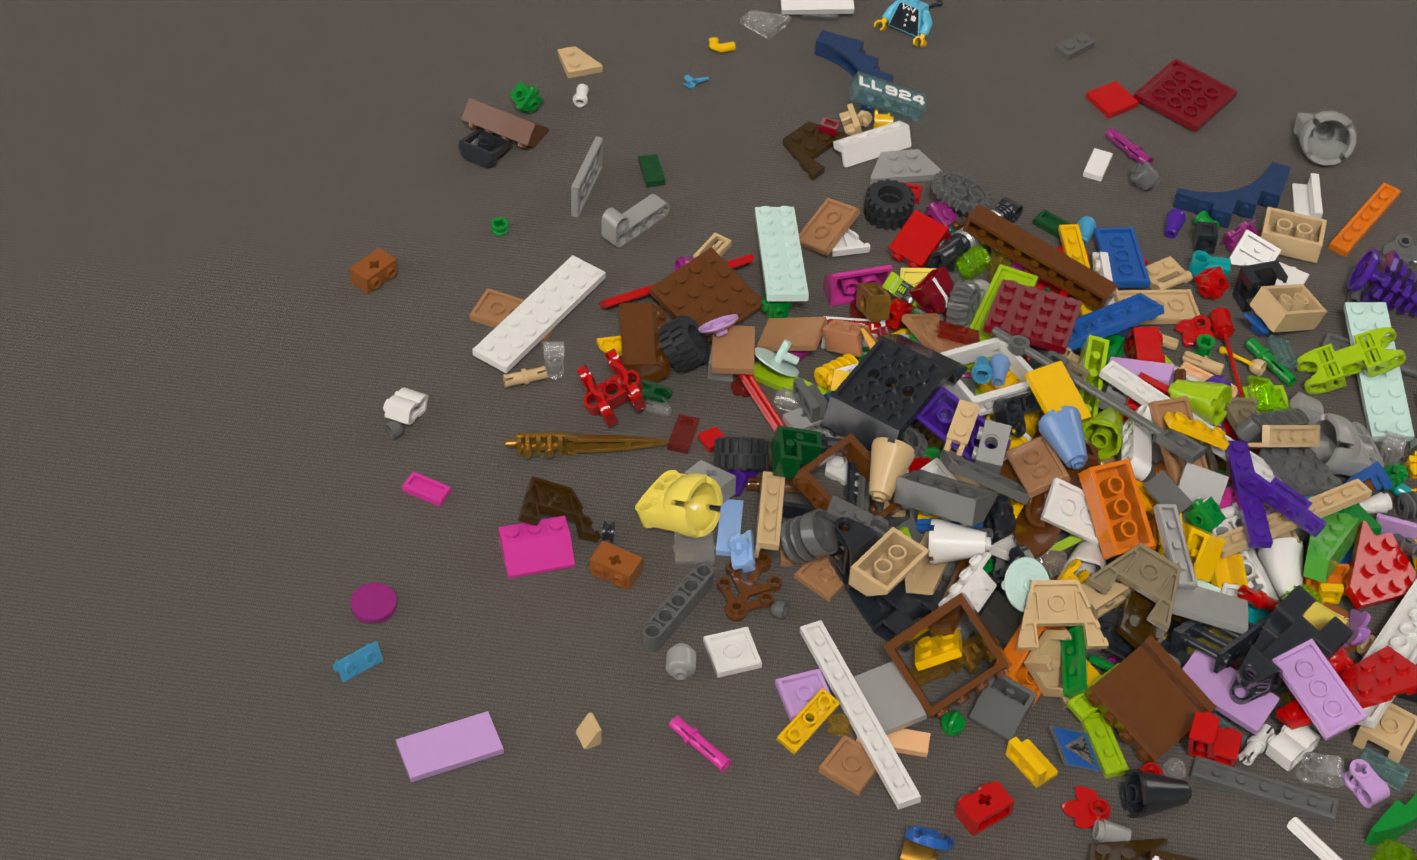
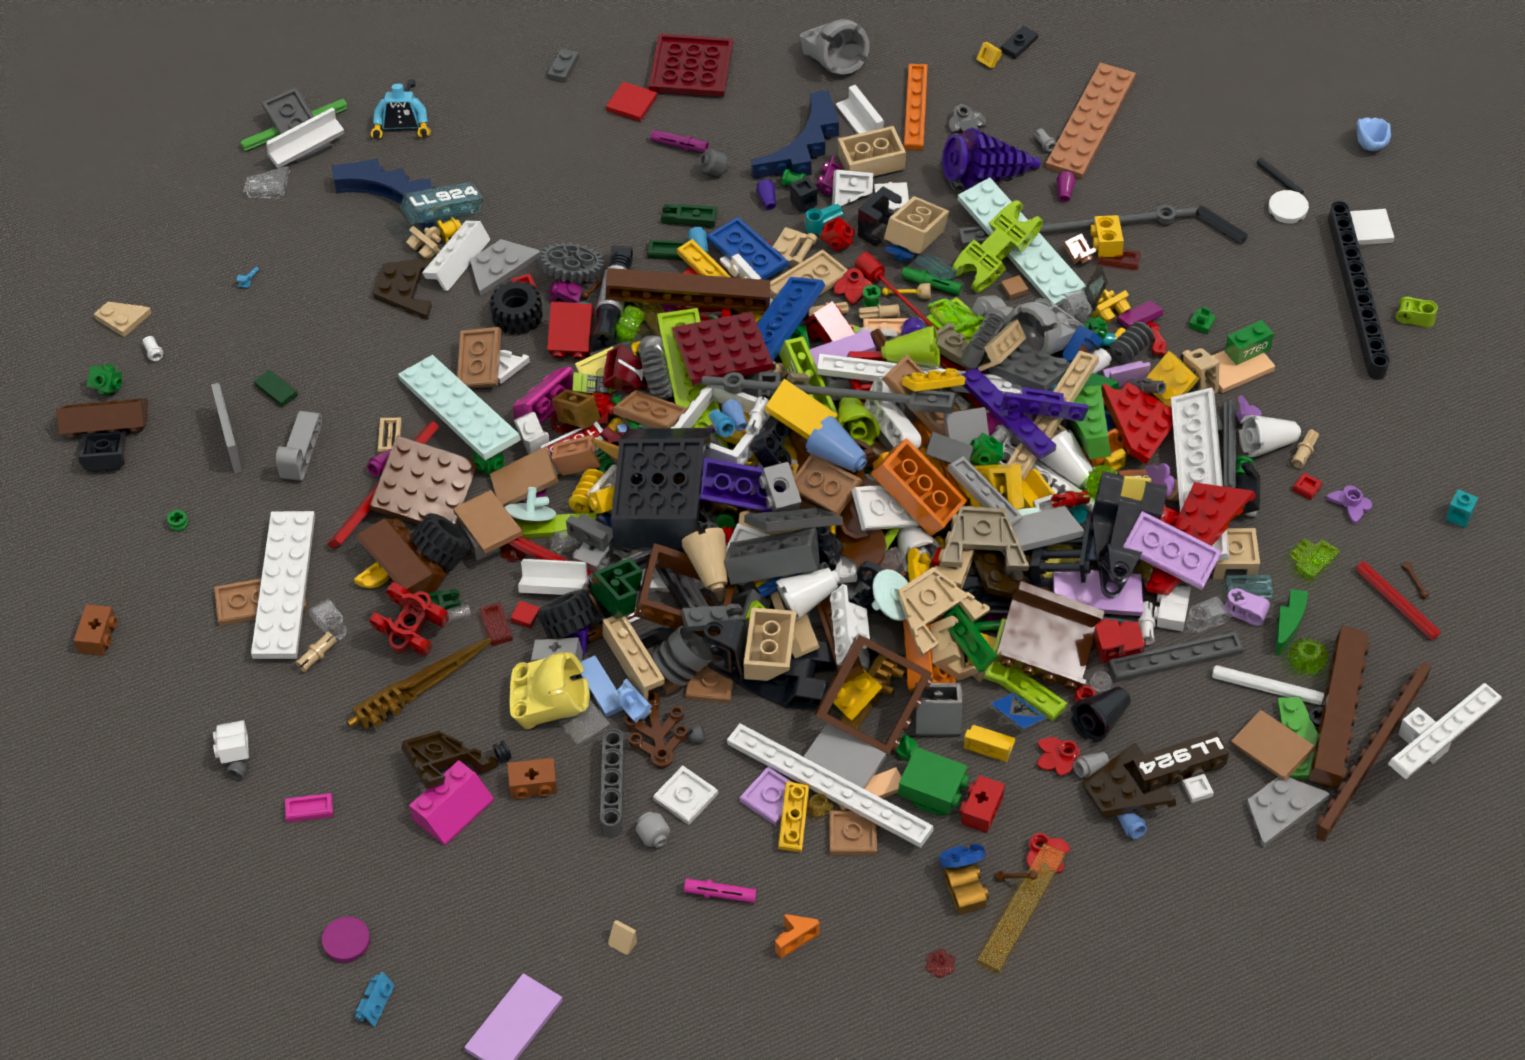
camera: 30 degrees left, 5 degrees up
(719, 325) = (462, 506): lavender dish -> none
(721, 47) = (247, 231): yellow arm -> none
(742, 817) = (799, 932): none -> orange slope
(752, 418) = (552, 576): none -> white panel
(824, 300) = (531, 432): none -> white slope
(829, 126) = (407, 259): dark red tile -> none
(951, 762) = (933, 782): none -> green brick
(957, 333) = (670, 399): clear red tile -> none
(962, 425) = (743, 485): tan hinge -> none
(1016, 381) = (757, 416): none -> white pin
(1093, 207) = (689, 214): none -> dark green hinge
(1097, 165) = (664, 172): white tile -> none
(1345, 405) = (1014, 287): none -> medium nougat tile

